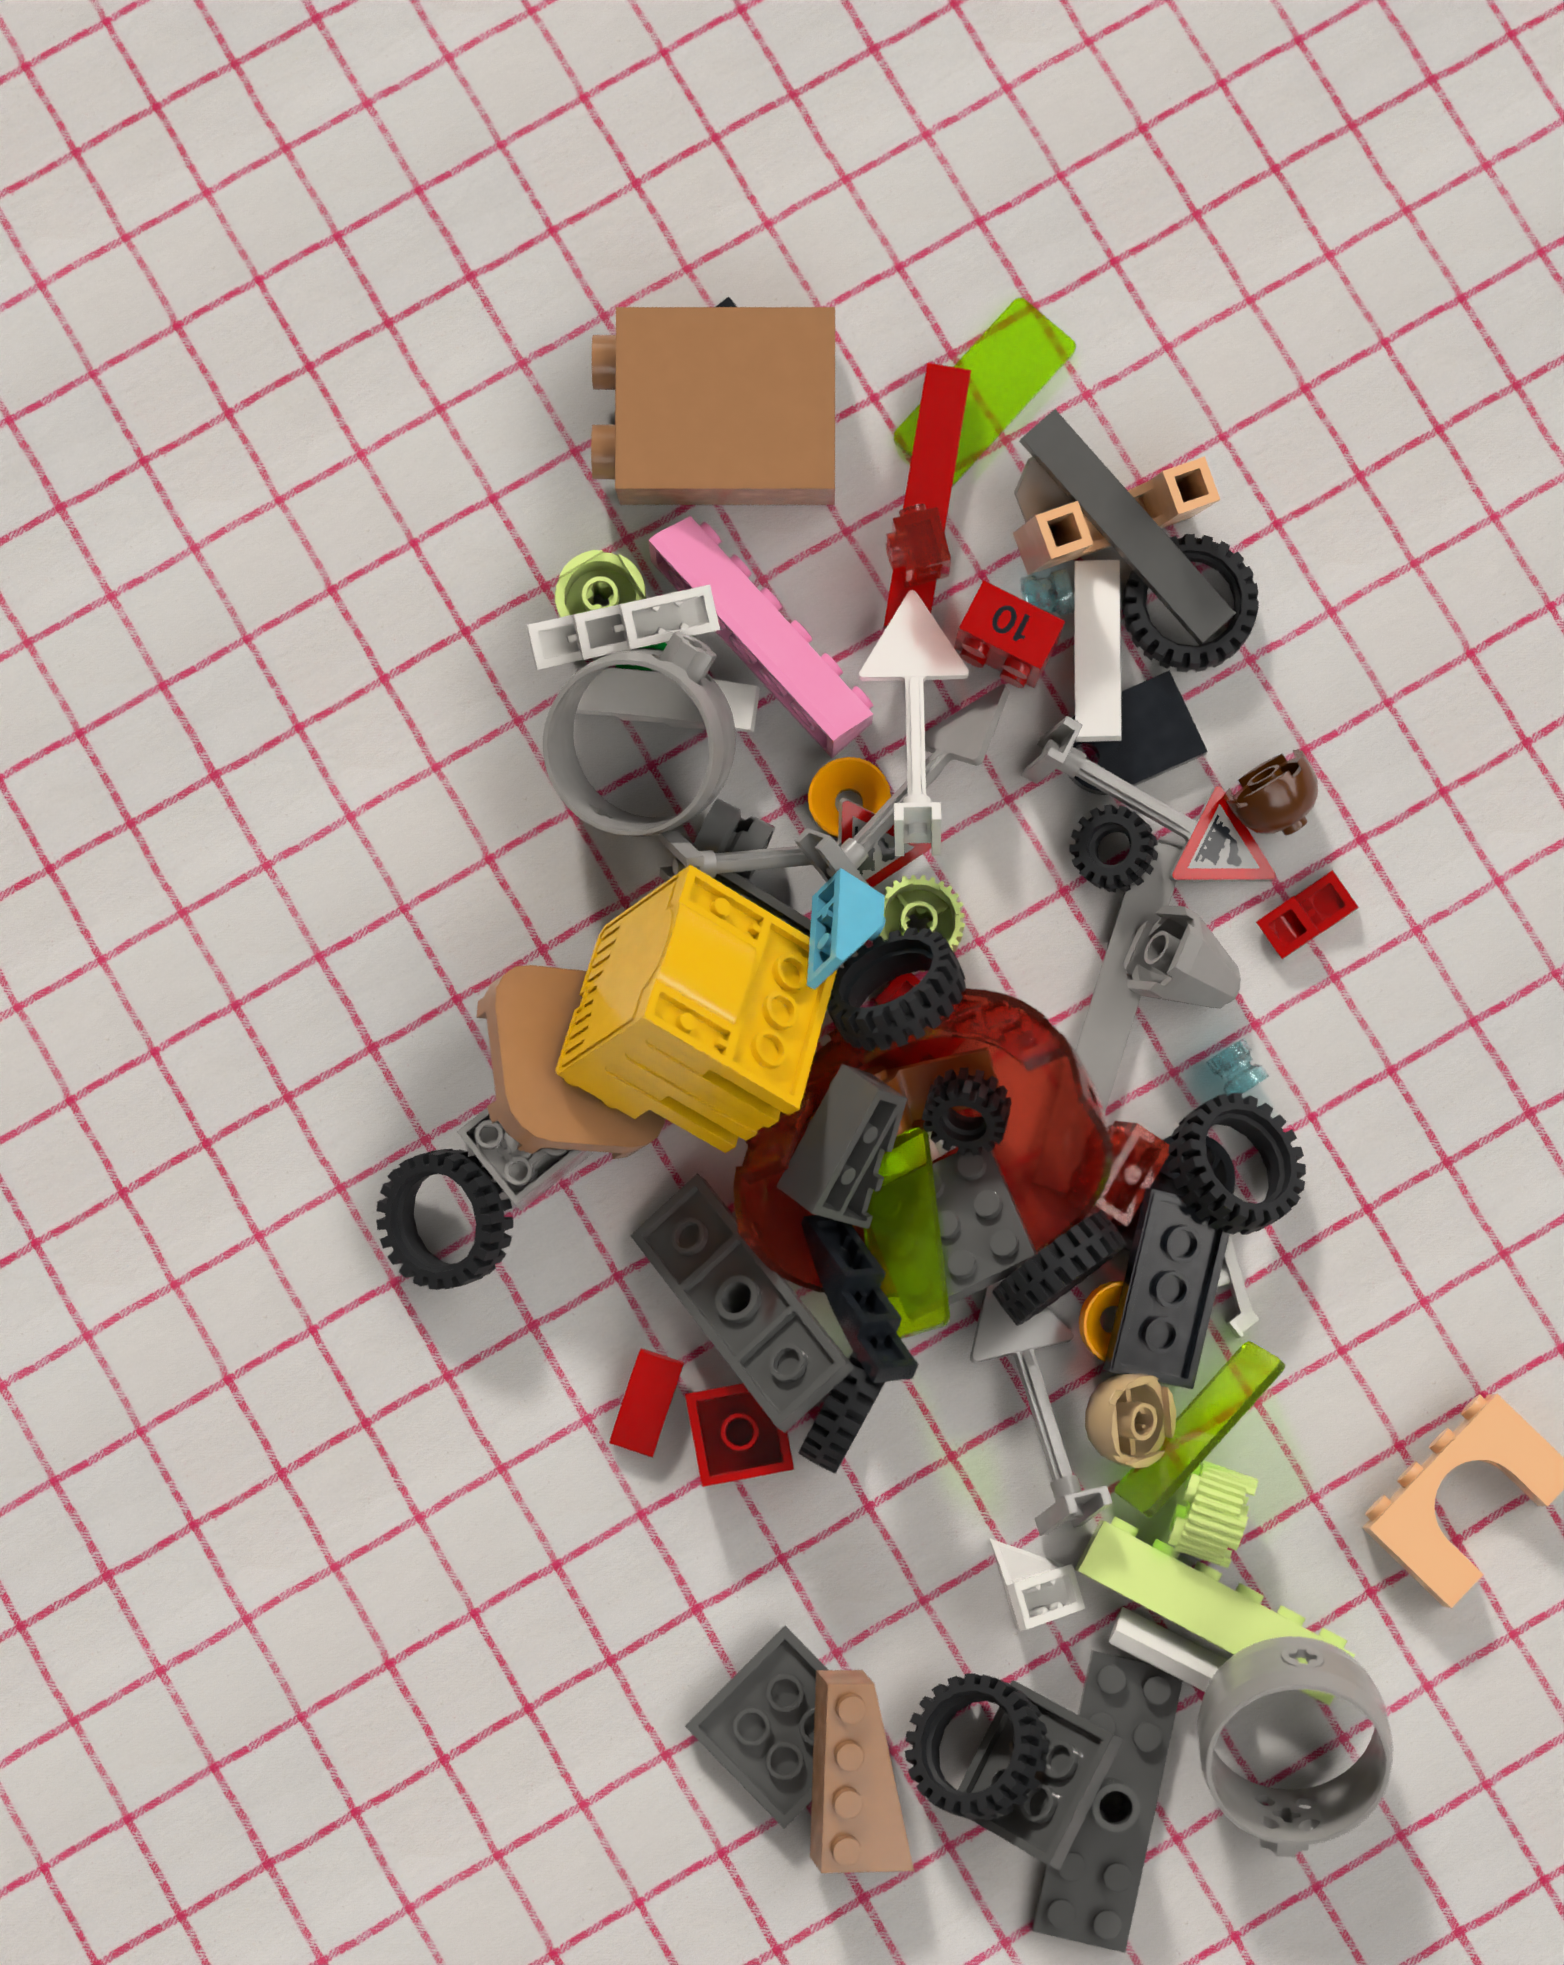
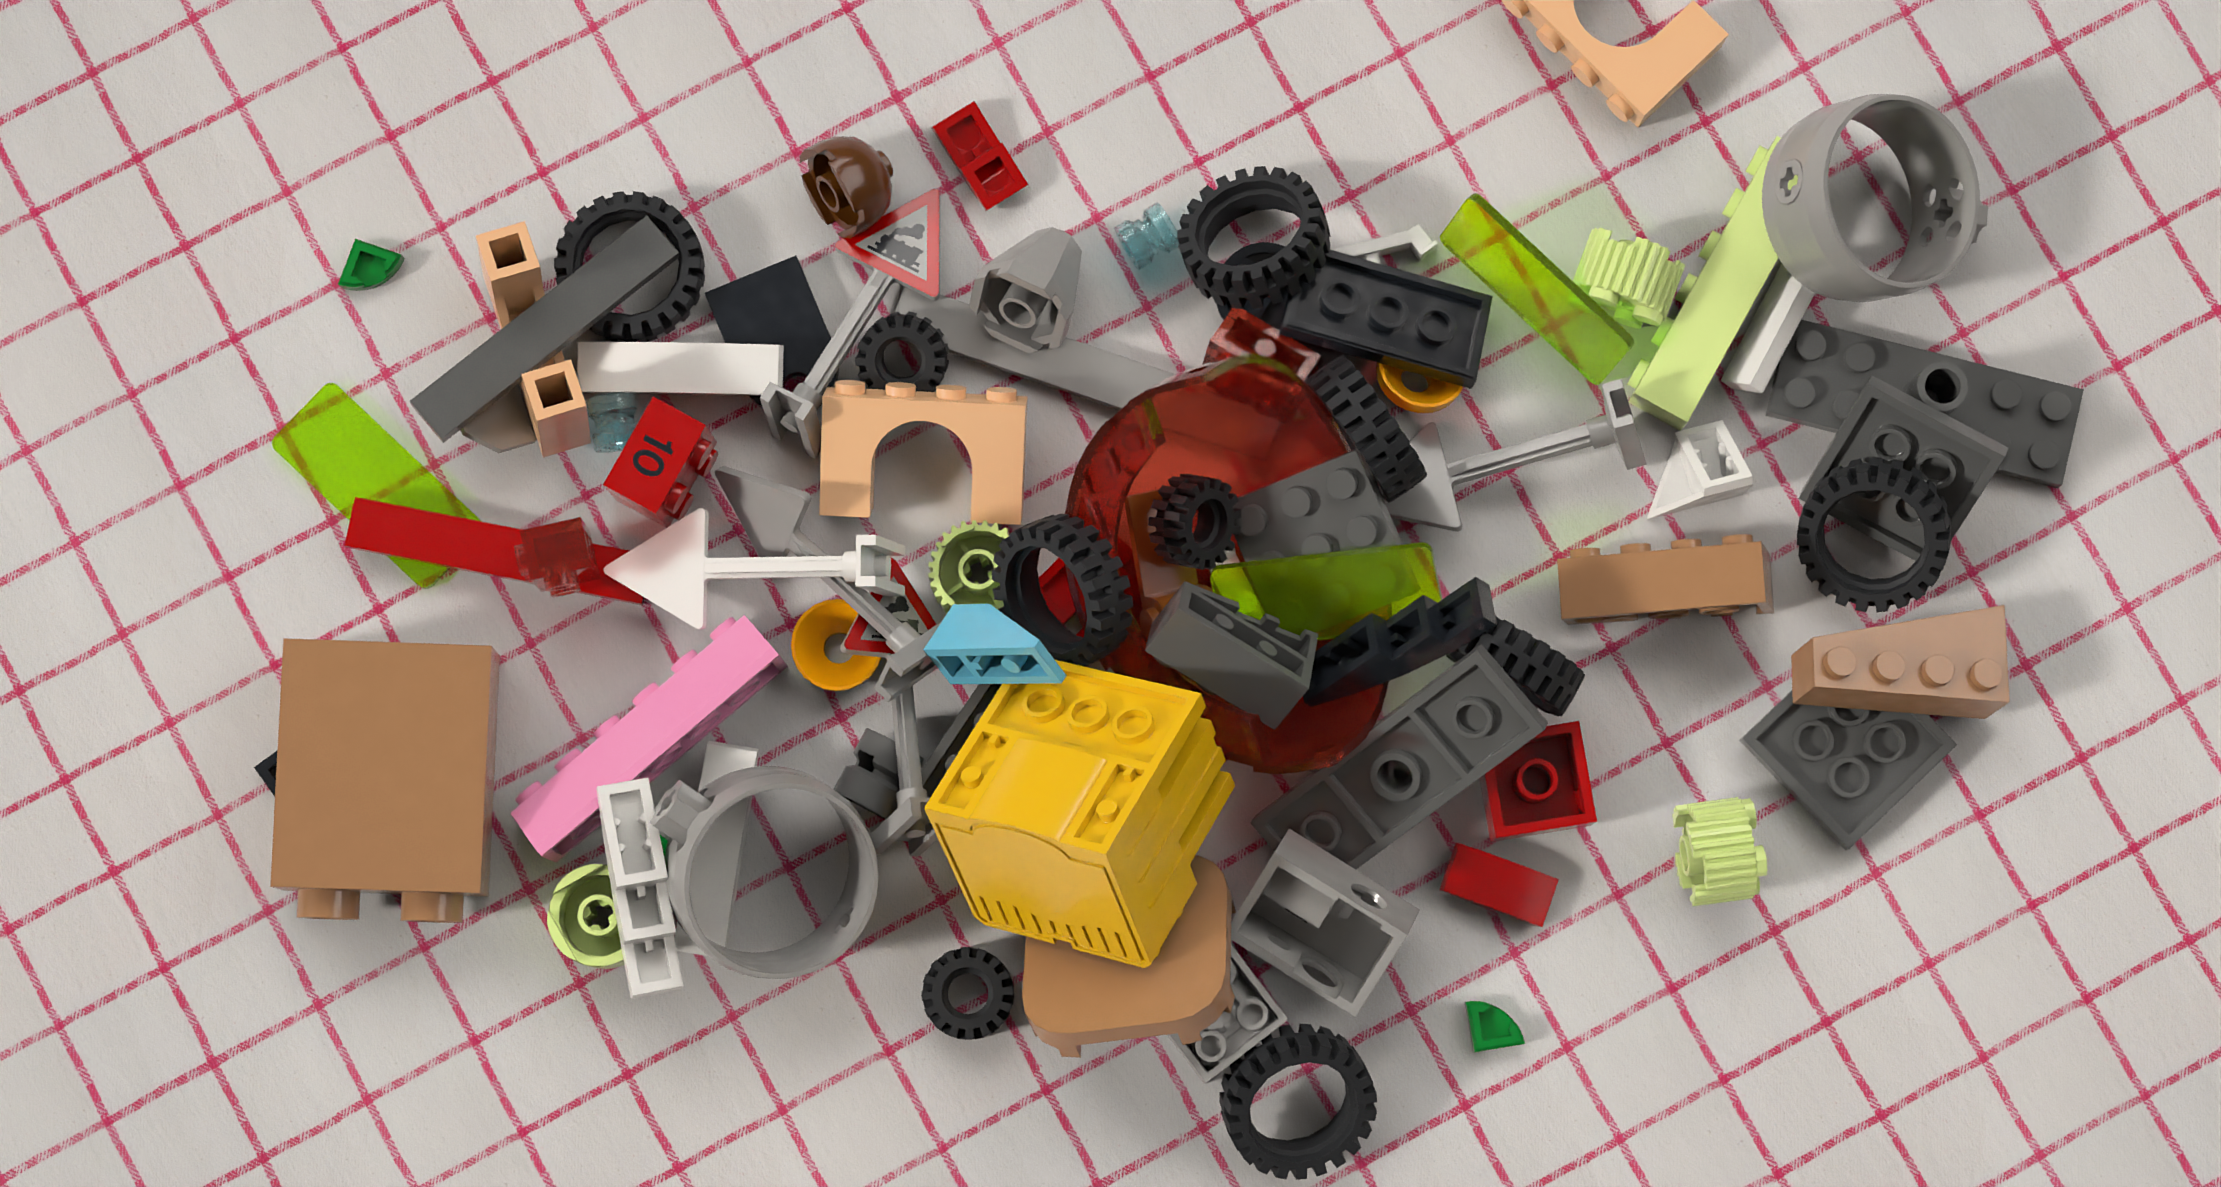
camera: 85 degrees left, 0 degrees up
(517, 1398) = (1491, 1027): none -> green tile
(534, 898) = (936, 987): none -> black tyre
(613, 1239) = (1325, 917): none -> light grey piece
(679, 1601) = (1719, 850): none -> yellowish green brick
(928, 1554) = (1665, 581): none -> medium nougat wedge
(1053, 924) = (987, 424): none -> light nougat arch
(1130, 1419) = (1525, 362): tan cylinder -> none
(1183, 374) = (369, 266): none -> green tile

